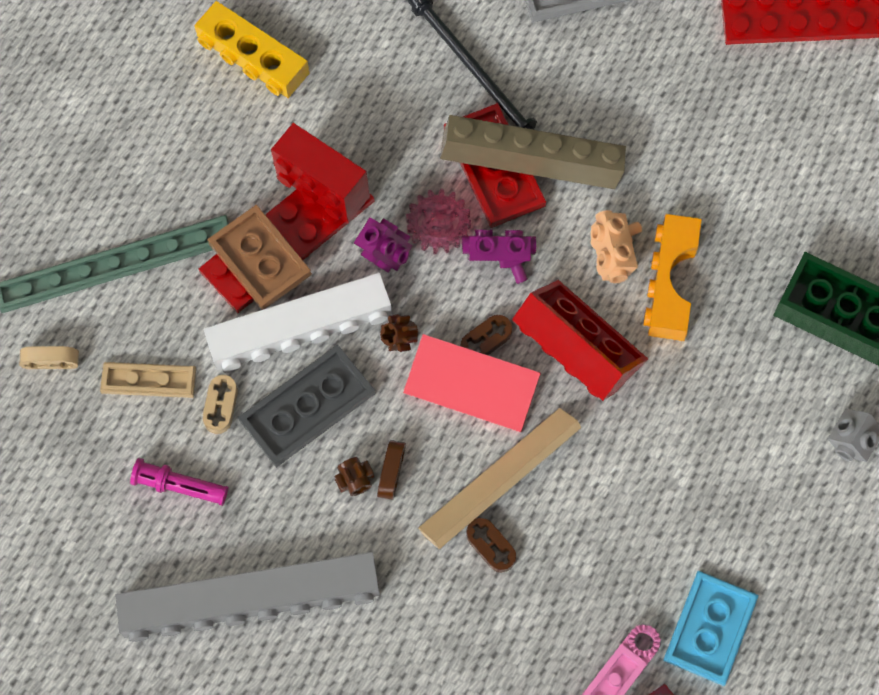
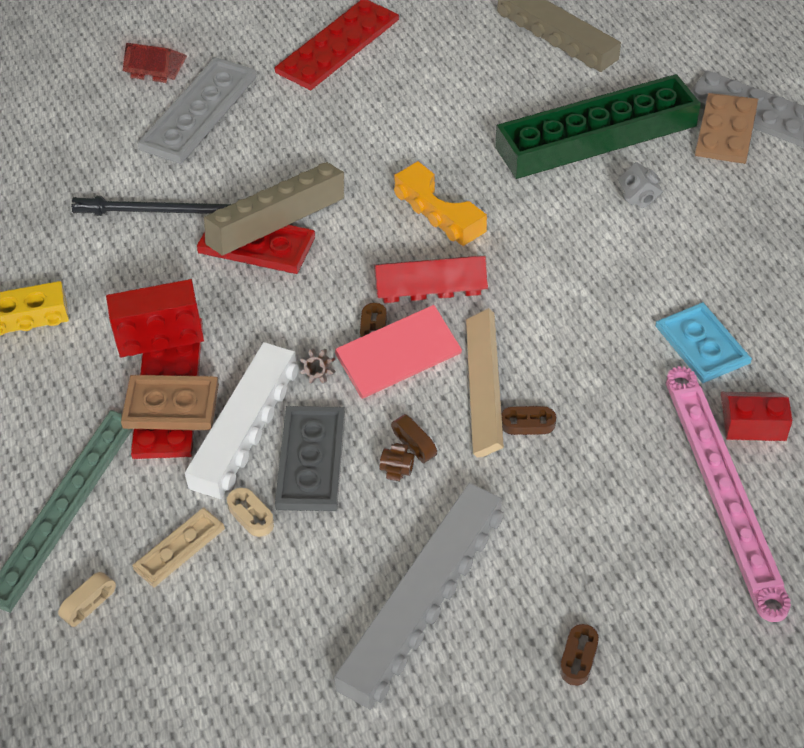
camera: 50 degrees left, 20 degrees down
(164, 479) = (268, 584): dark pink pin -> none
(387, 247) = (245, 325): magenta brick -> none
(436, 233) = (261, 294): clear pink gear -> none
(507, 249) = (324, 269): magenta brick -> none
(613, 245) = (376, 215): light nougat brick -> none

